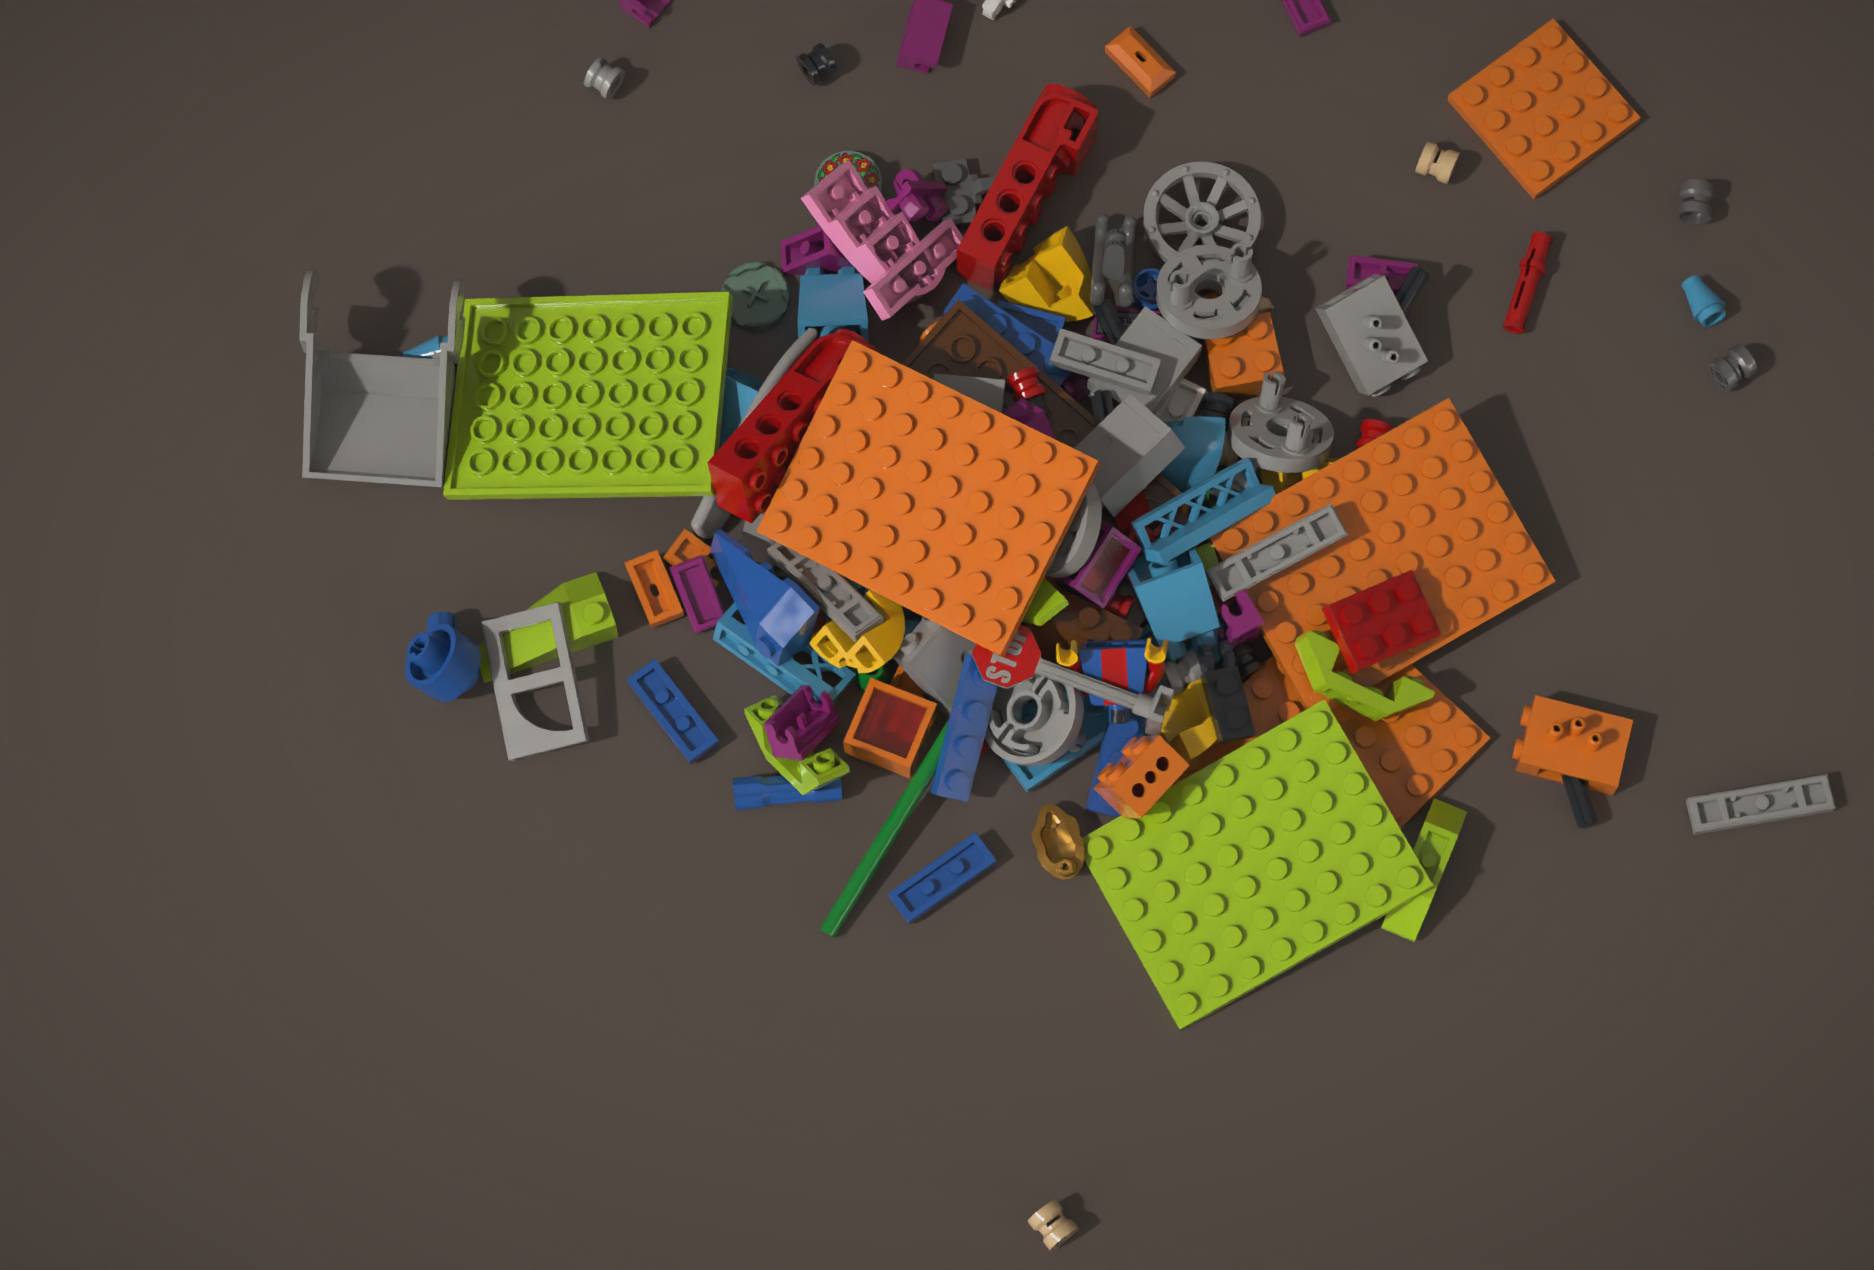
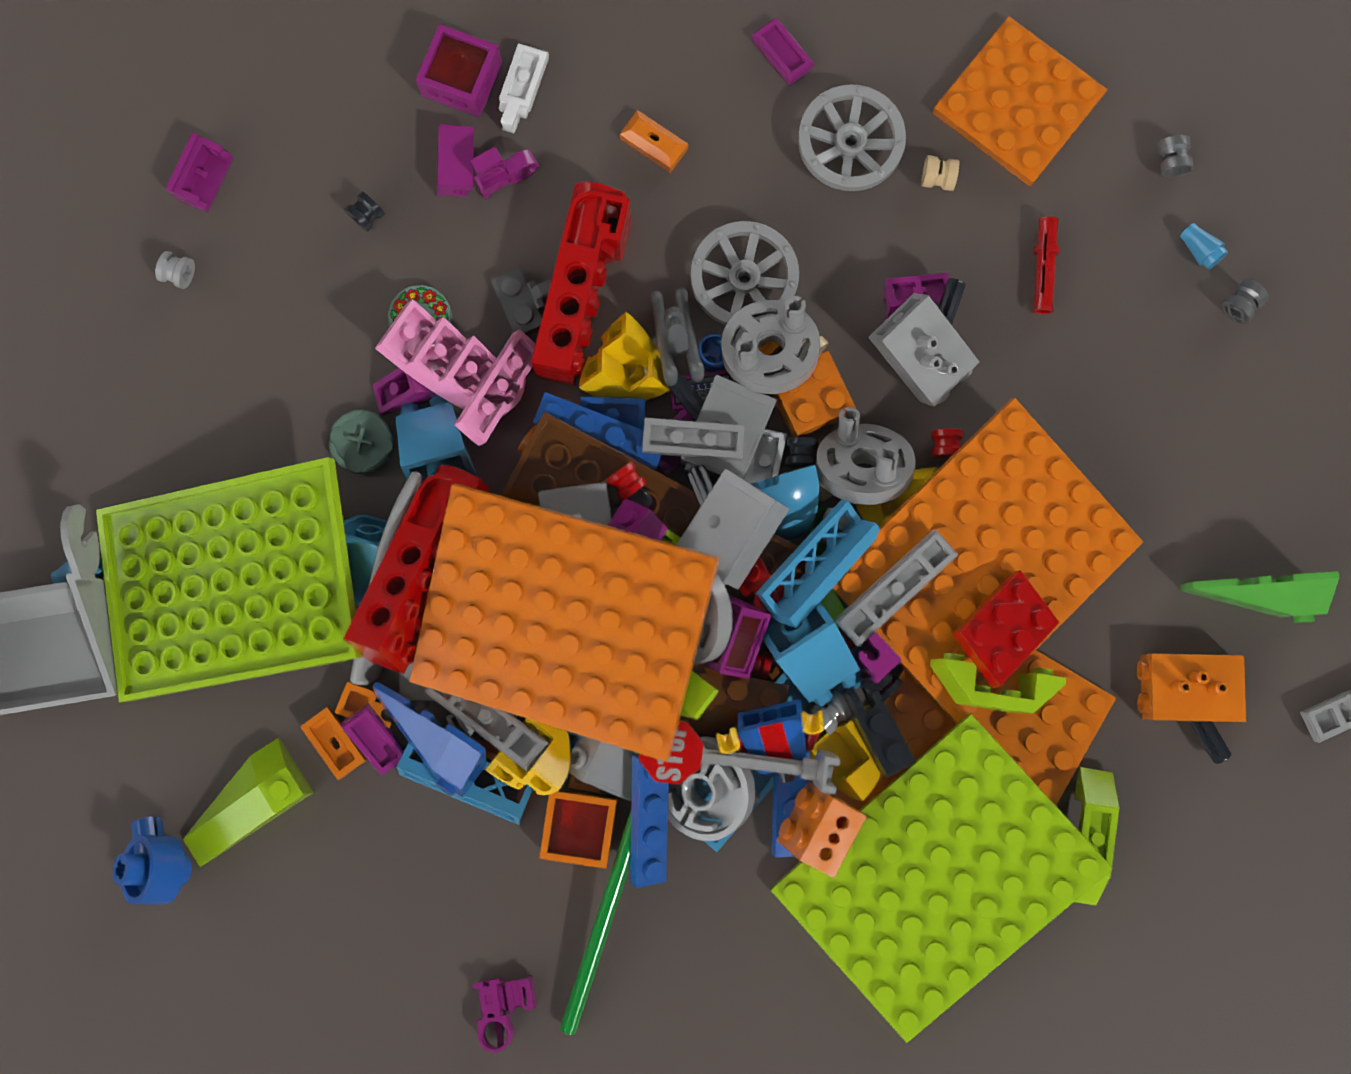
camera: 15 degrees left, 10 degrees up
(520, 734) = (245, 911): light grey window -> none
(672, 711) = (377, 856): blue plate -> none
(765, 886) = (498, 999): none -> magenta piece
(775, 790) = (520, 897): blue axle -> none
(800, 724) = (496, 849): magenta hinge -> none
(806, 774) = (517, 895): lime slope -> none
(918, 197) = (484, 317): magenta hips -> none
(942, 878) = (659, 954): blue plate -> none
(966, 56) = (495, 173): none -> magenta piece
(1058, 842) = (756, 895): pearl gold arm -> none
(1351, 99) = (851, 132): none -> light grey wheel
(1697, 674) = (1286, 596): none -> bright green wedge

